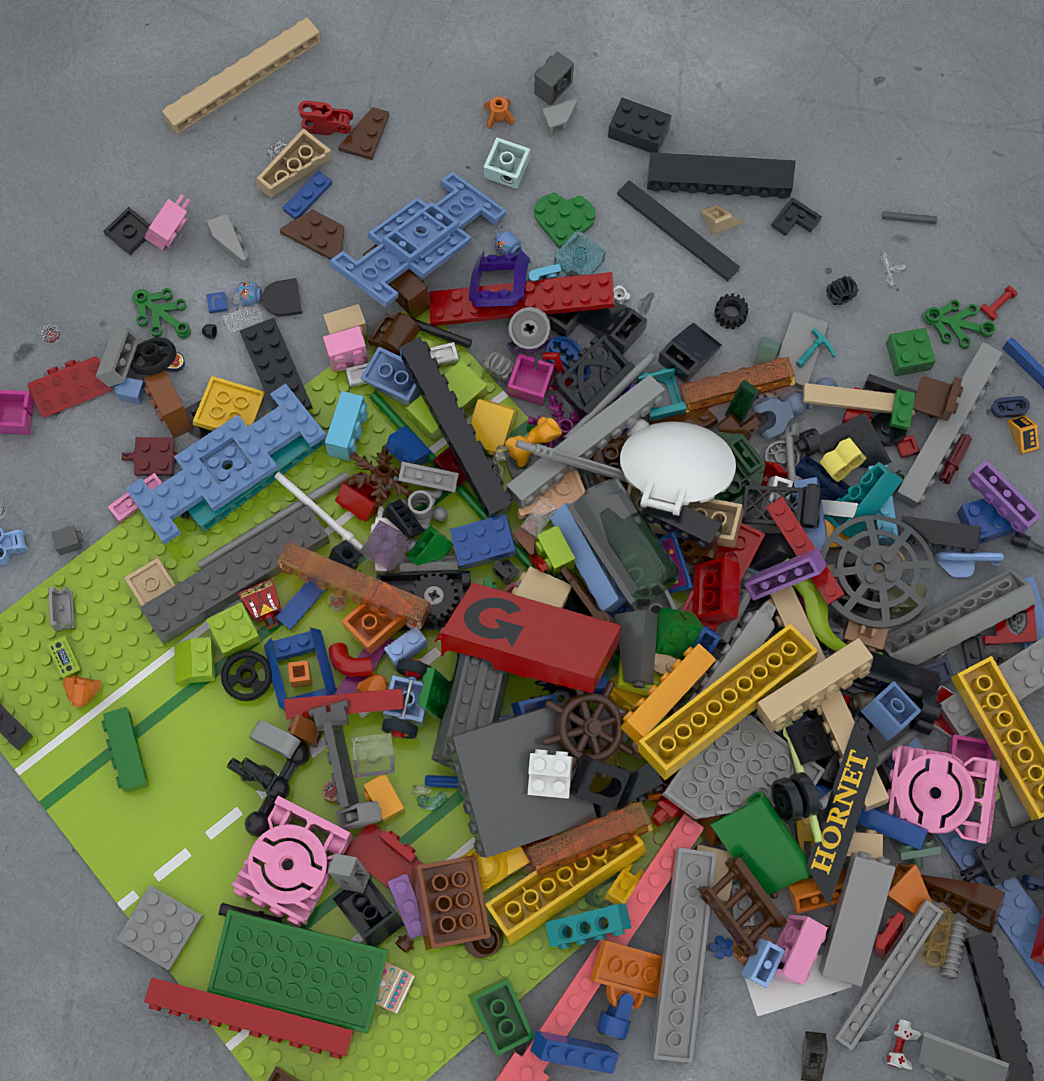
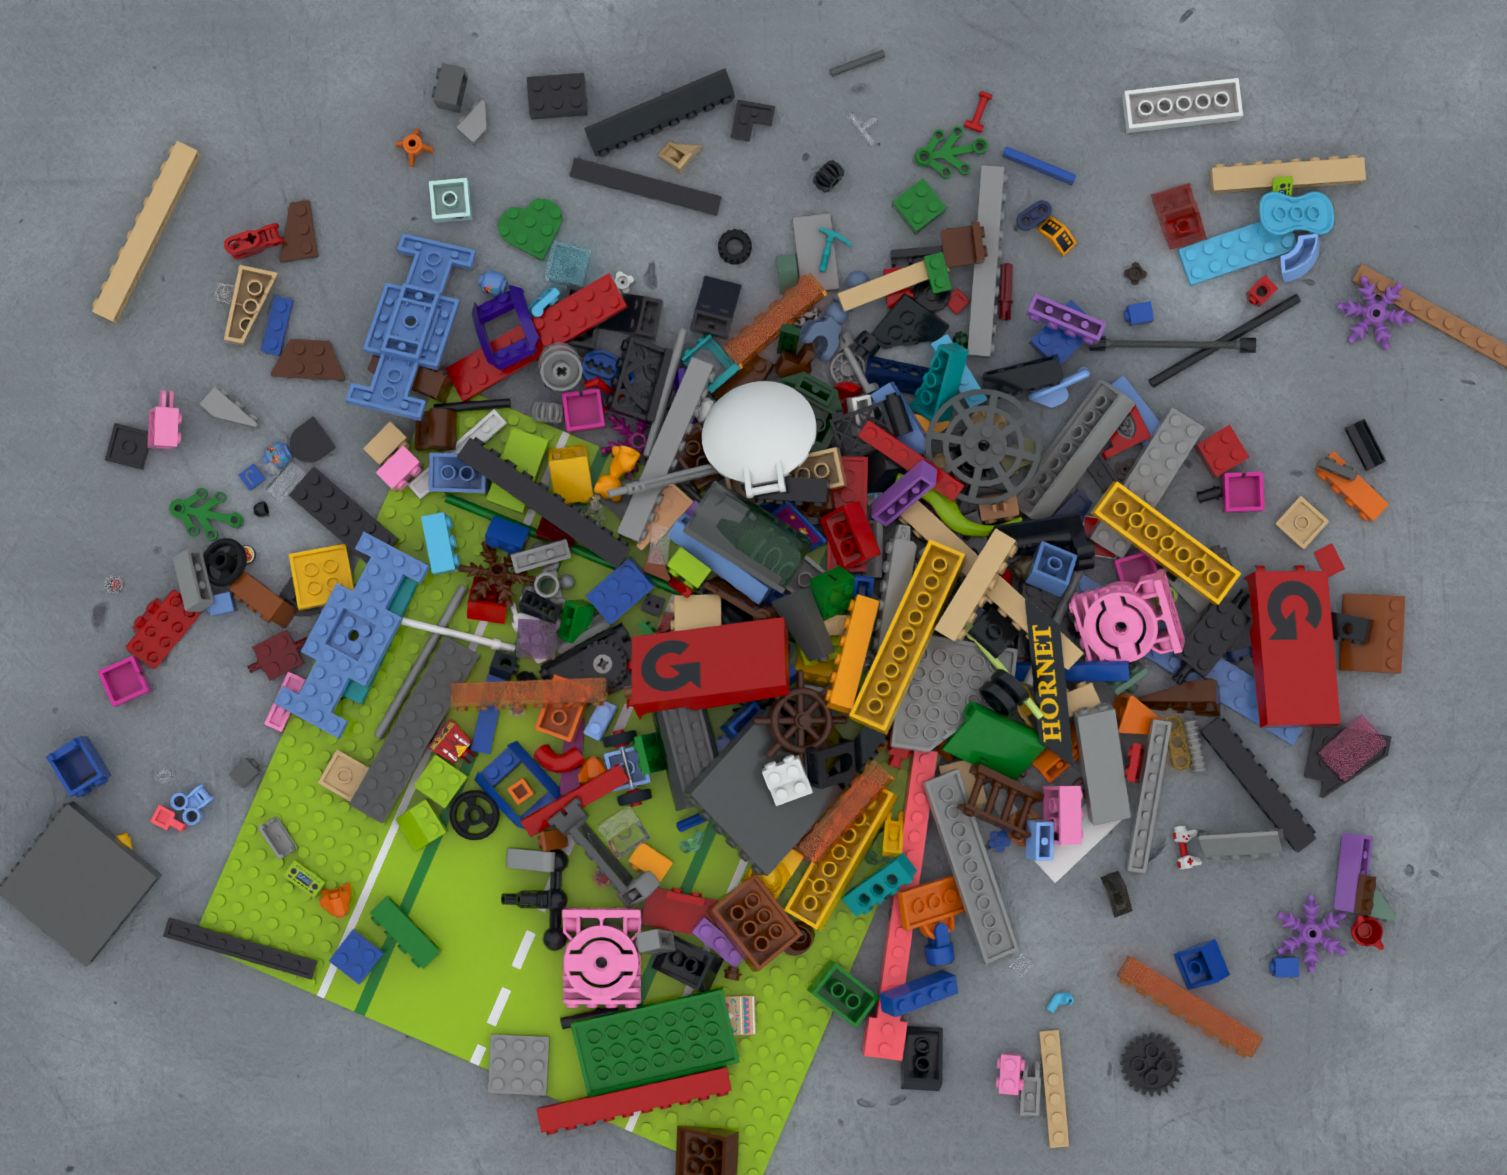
camera: 25 degrees left, 15 degrees up
(69, 749) = (357, 956): none -> blue brick
(420, 790) = (679, 838): clear tile -> none
(839, 508) = (922, 399): white sticker -> none
(842, 459) = (904, 348): light yellow brick -> none

